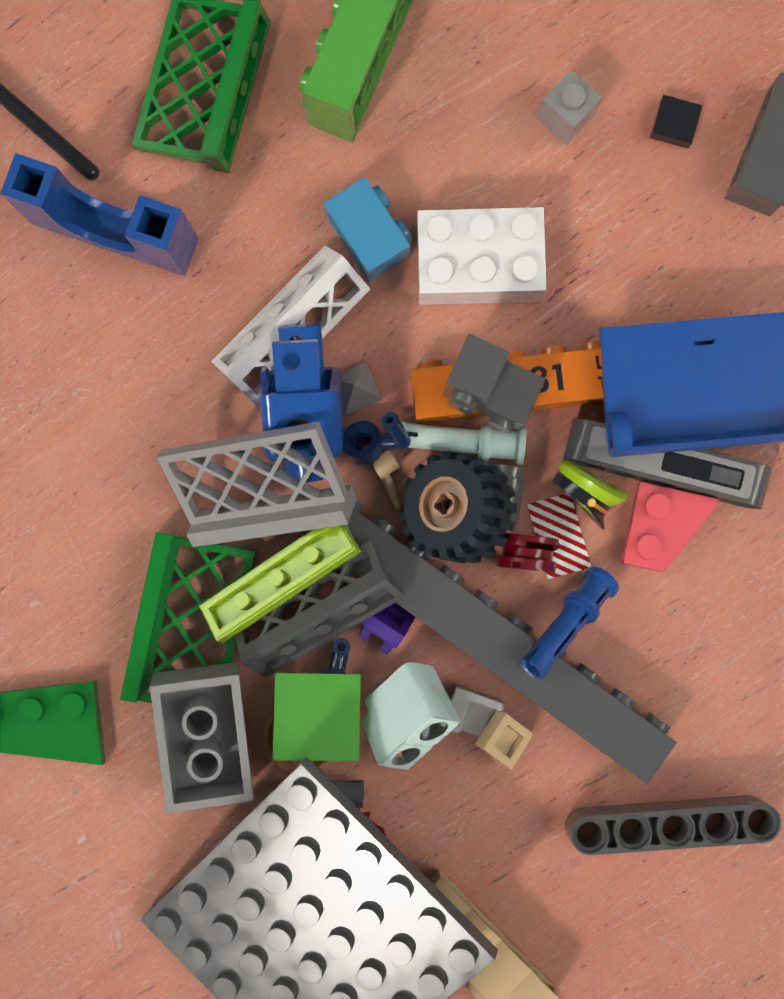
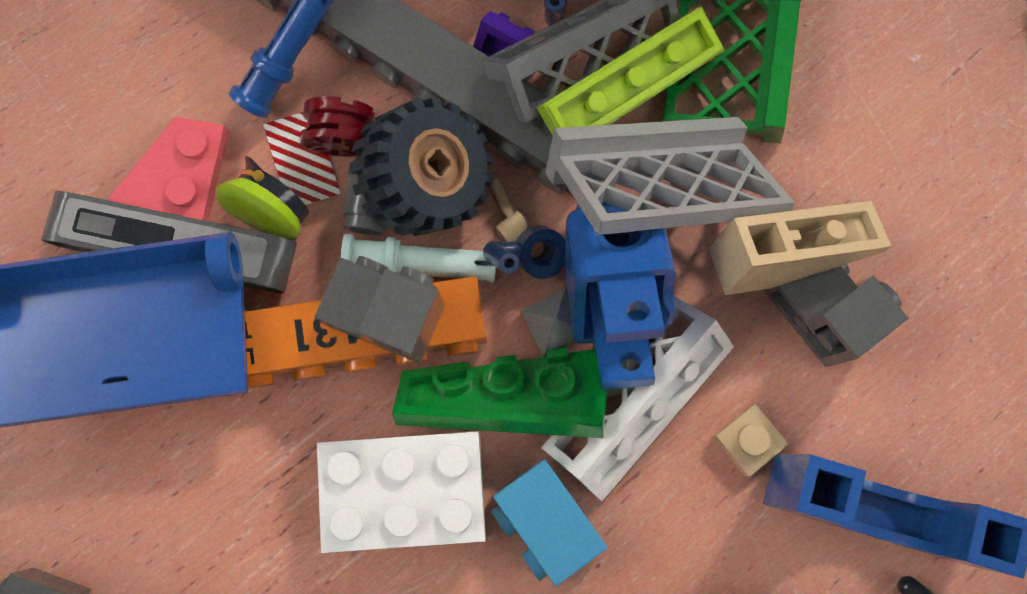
camera: 170 degrees right, 5 degrees down
(124, 375) = (837, 315): none -> dark grey brick
(155, 427) = (795, 244): none -> tan slope
(204, 287) = (750, 440): none -> tan plate
(381, 326) = (528, 396): none -> green wing

